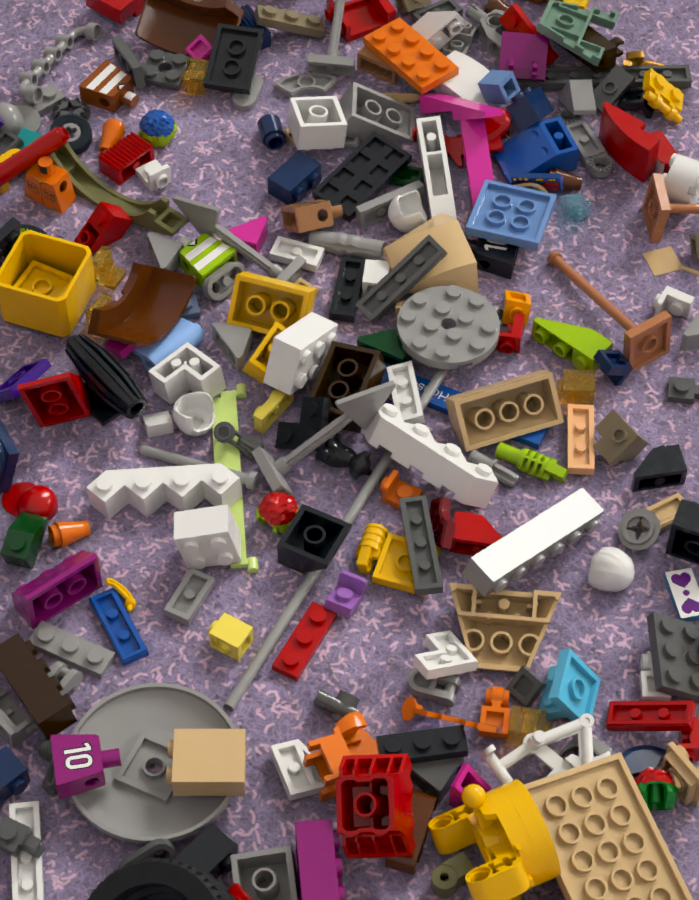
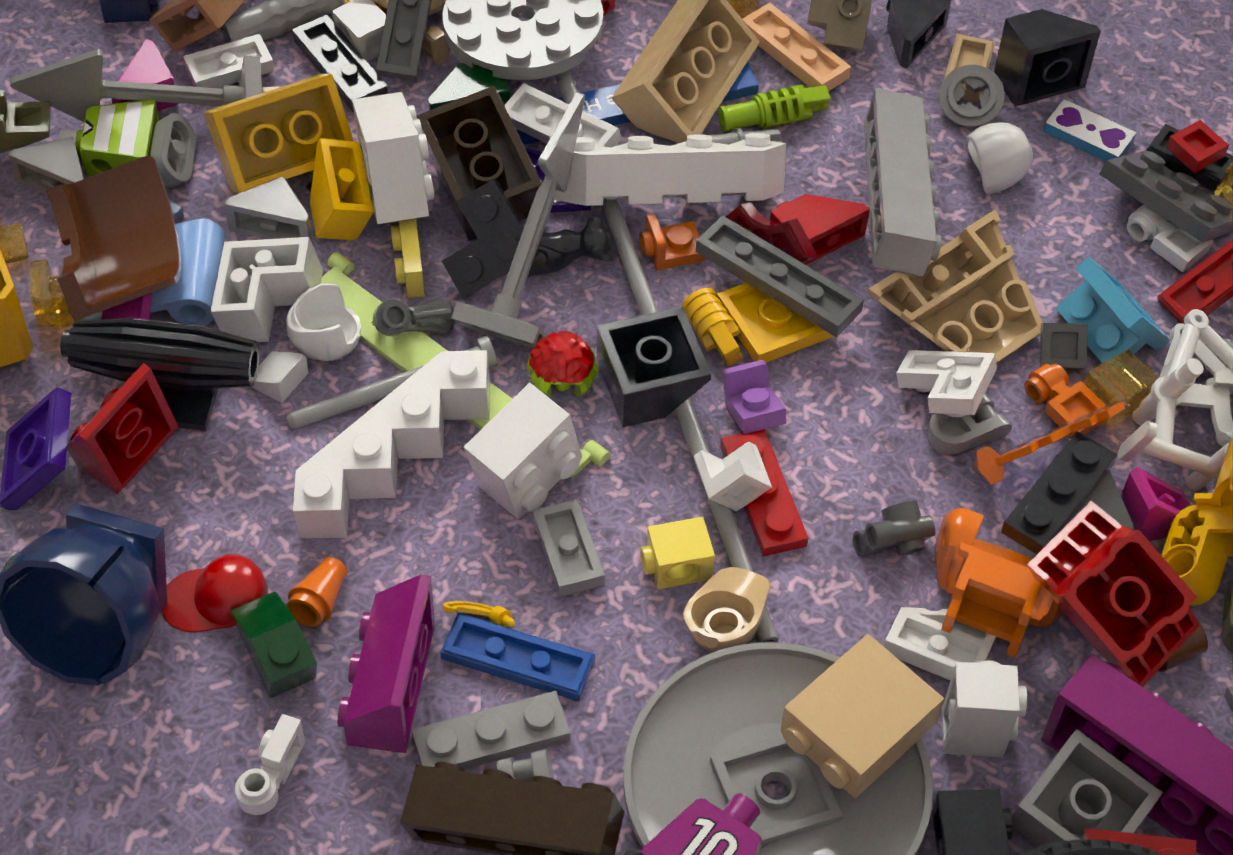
camera: 45 degrees left, 0 degrees up
(219, 676) = (727, 609): none -> tan piece
(270, 806) = (982, 709): none -> white brick
(289, 621) = (735, 478): none -> white panel

